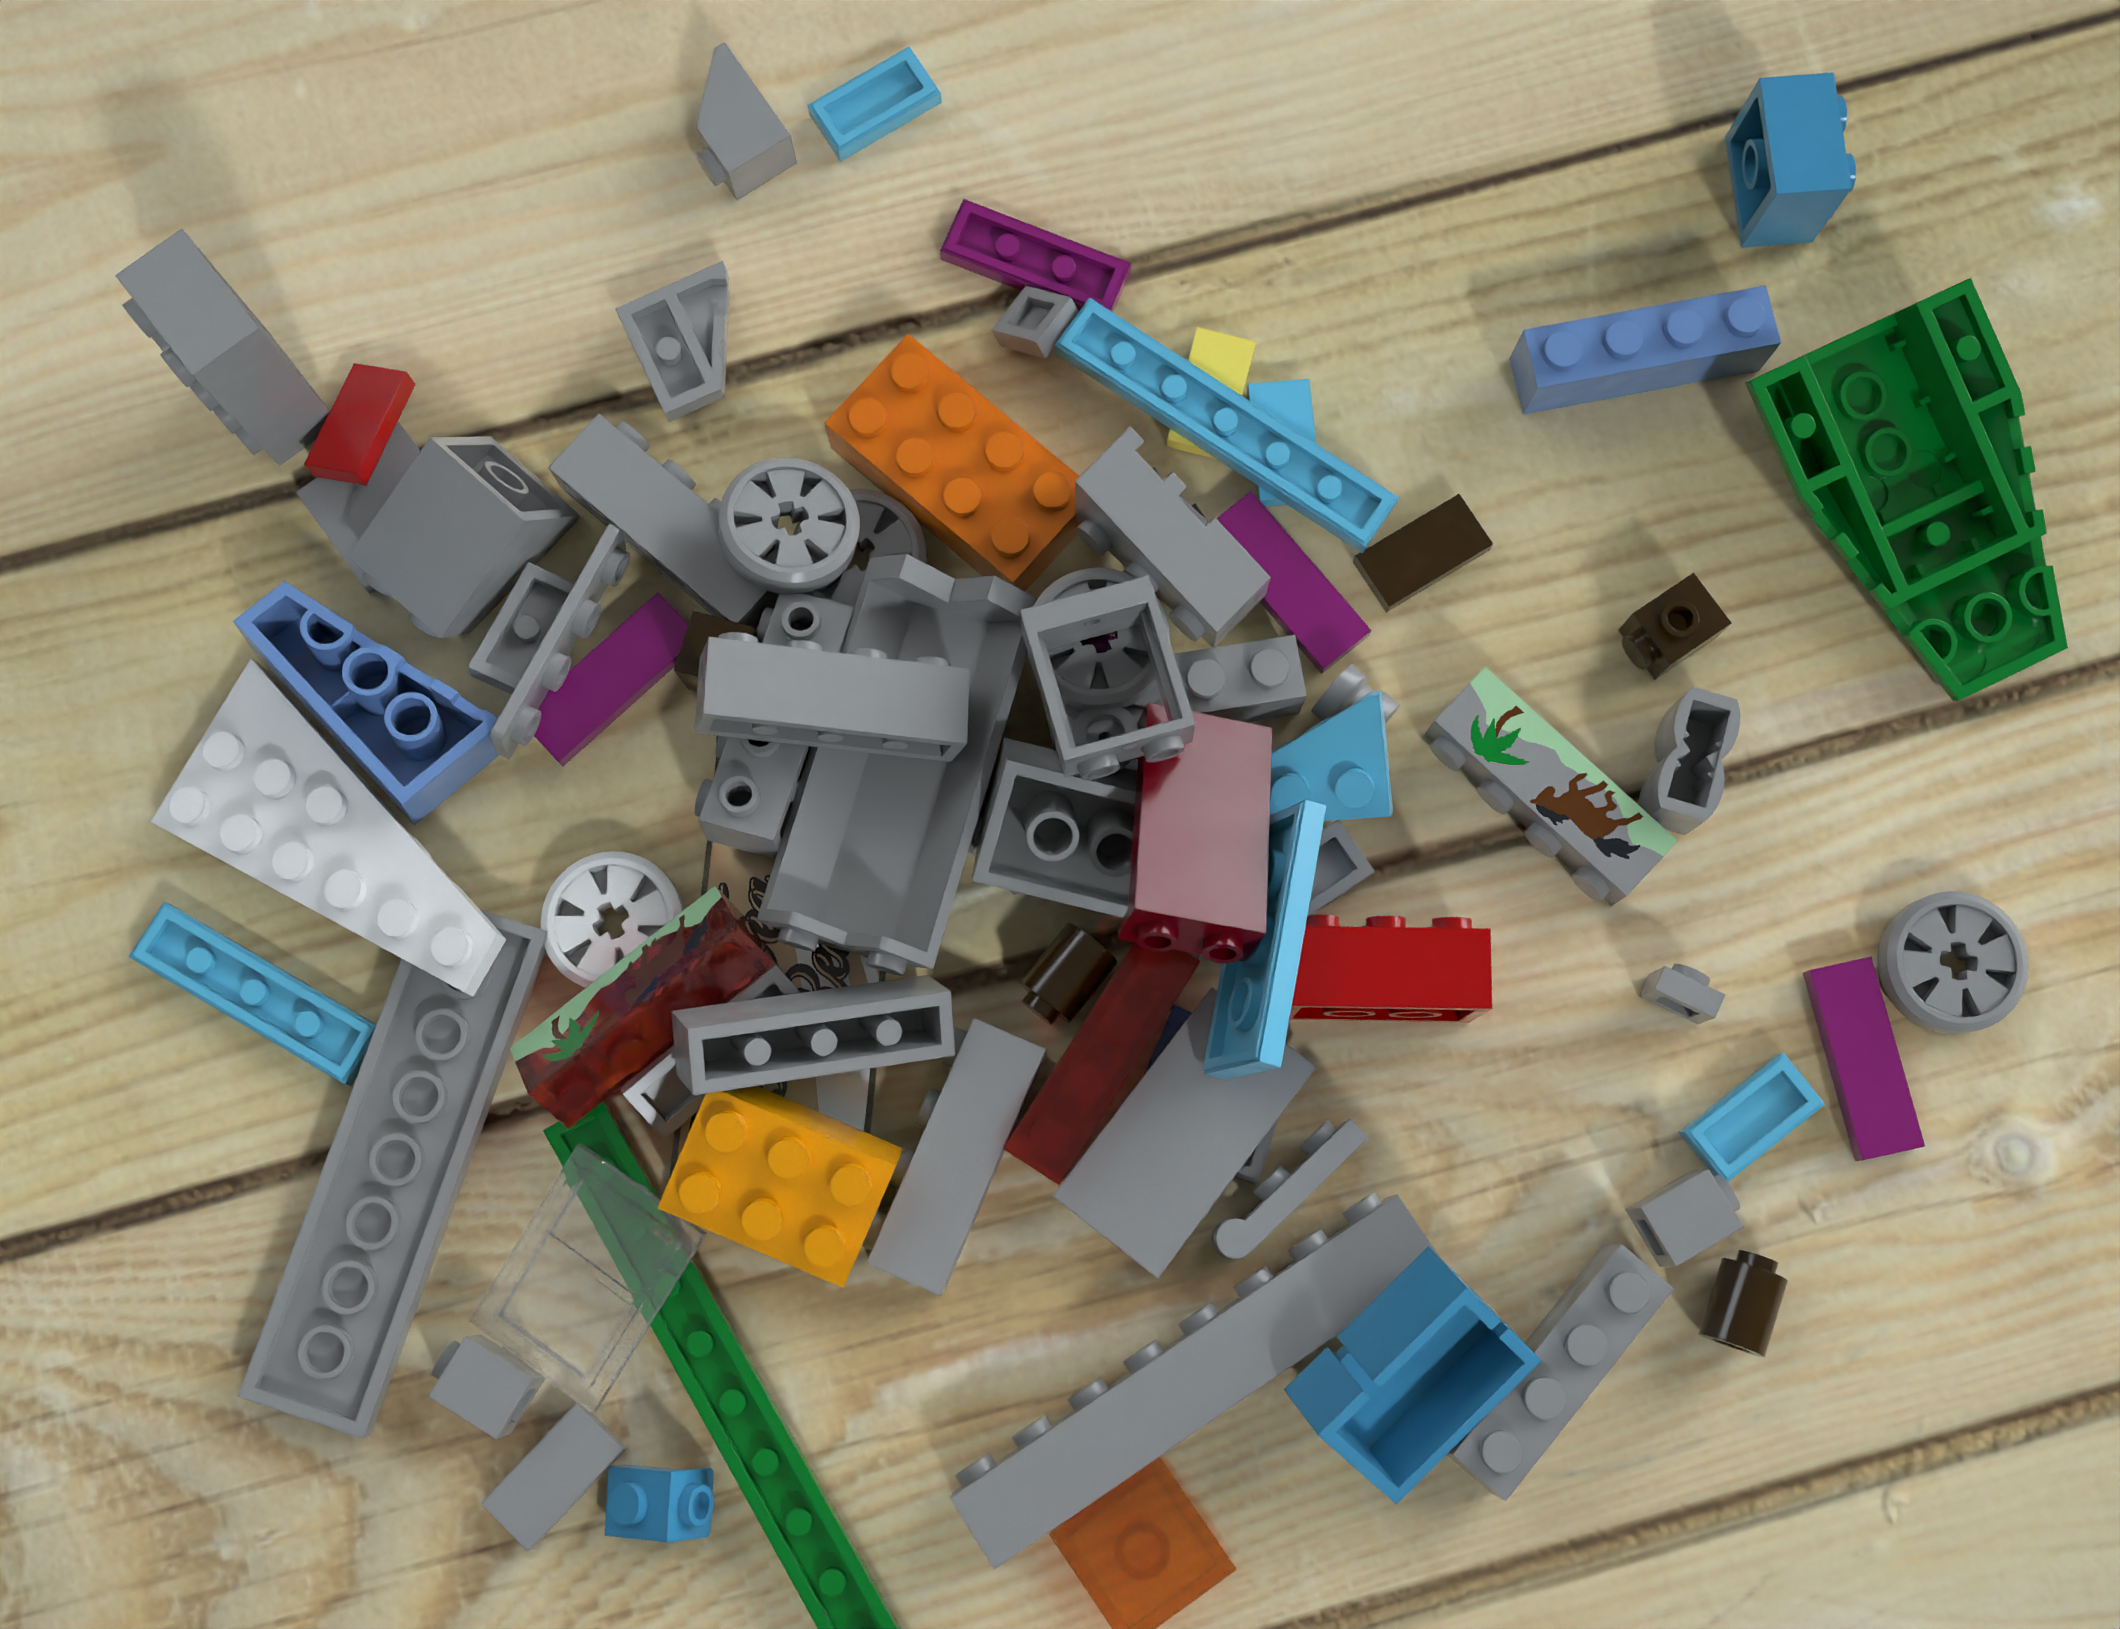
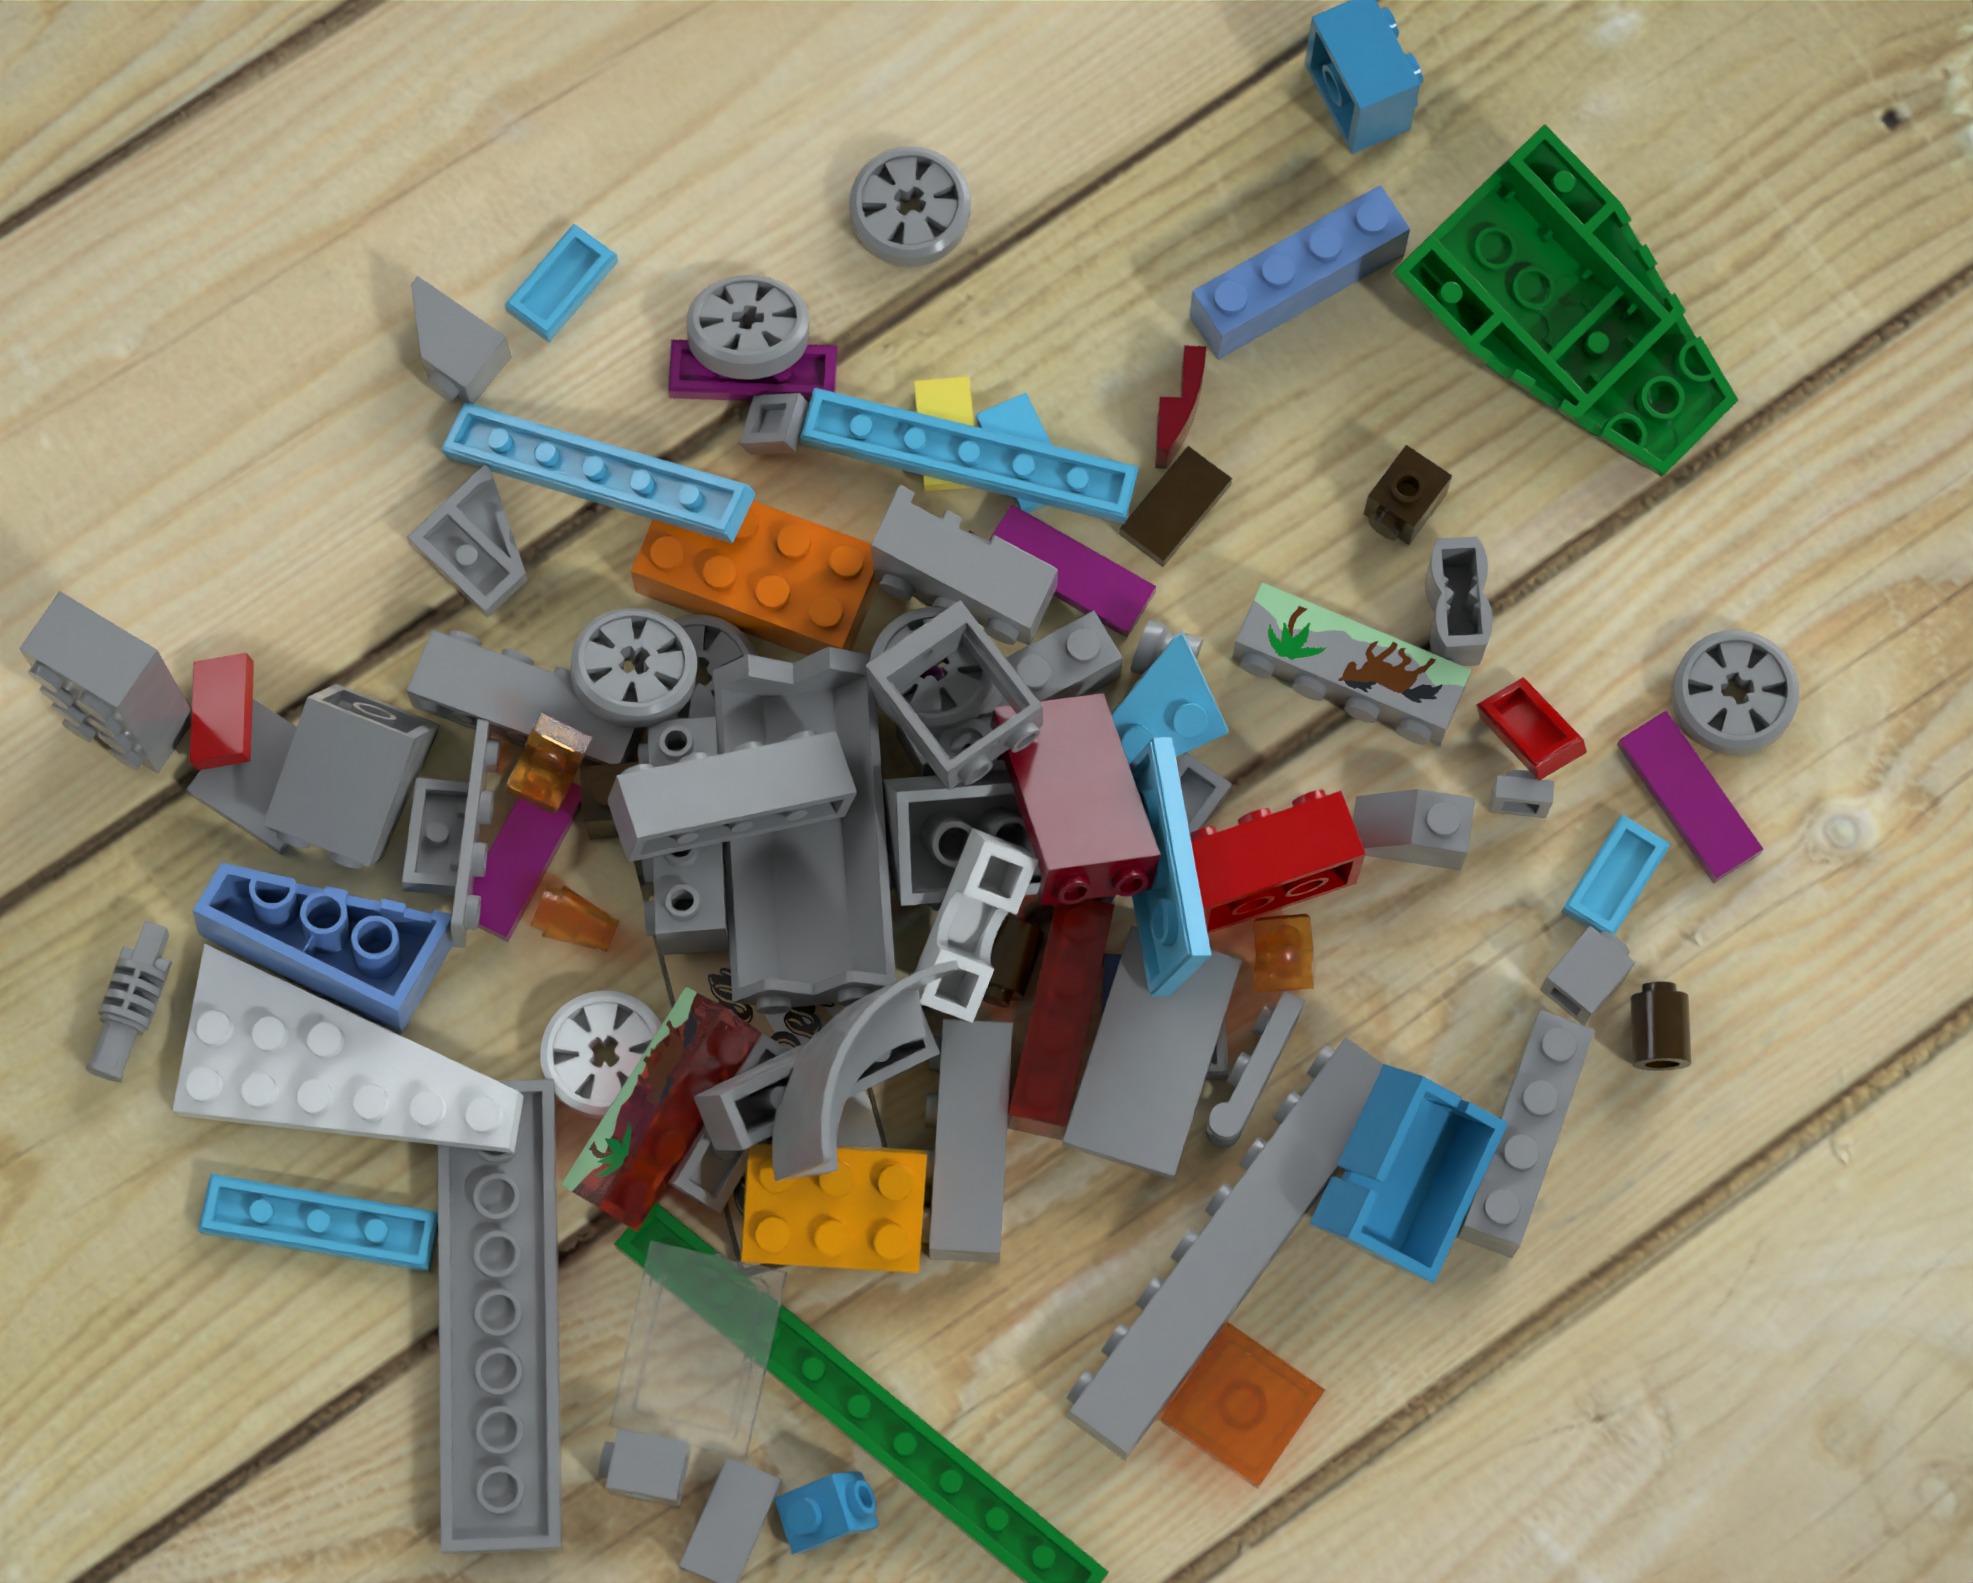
camera: 20 degrees left, 5 degrees down
(154, 690) = (130, 1001): none -> light grey hinge
(634, 768) = (573, 919): none -> clear orange cone
(662, 596) = (548, 763): none -> clear orange bracket
(820, 1040) = (833, 1063): none -> light grey panel
(834, 310) = (599, 472): none -> medium azure tile
(1009, 959) = (982, 892): none -> white arch
(1062, 237) = (770, 346): none -> light grey wheel
(1265, 111) = (913, 237): none -> light grey wheel
(1363, 1077) = (1284, 953): none -> clear orange bracket
(1461, 455) = (1178, 413): none -> dark red slope
(1556, 987) = (1415, 826): none -> light grey slope
(1719, 927) = (1531, 728): none -> red tile

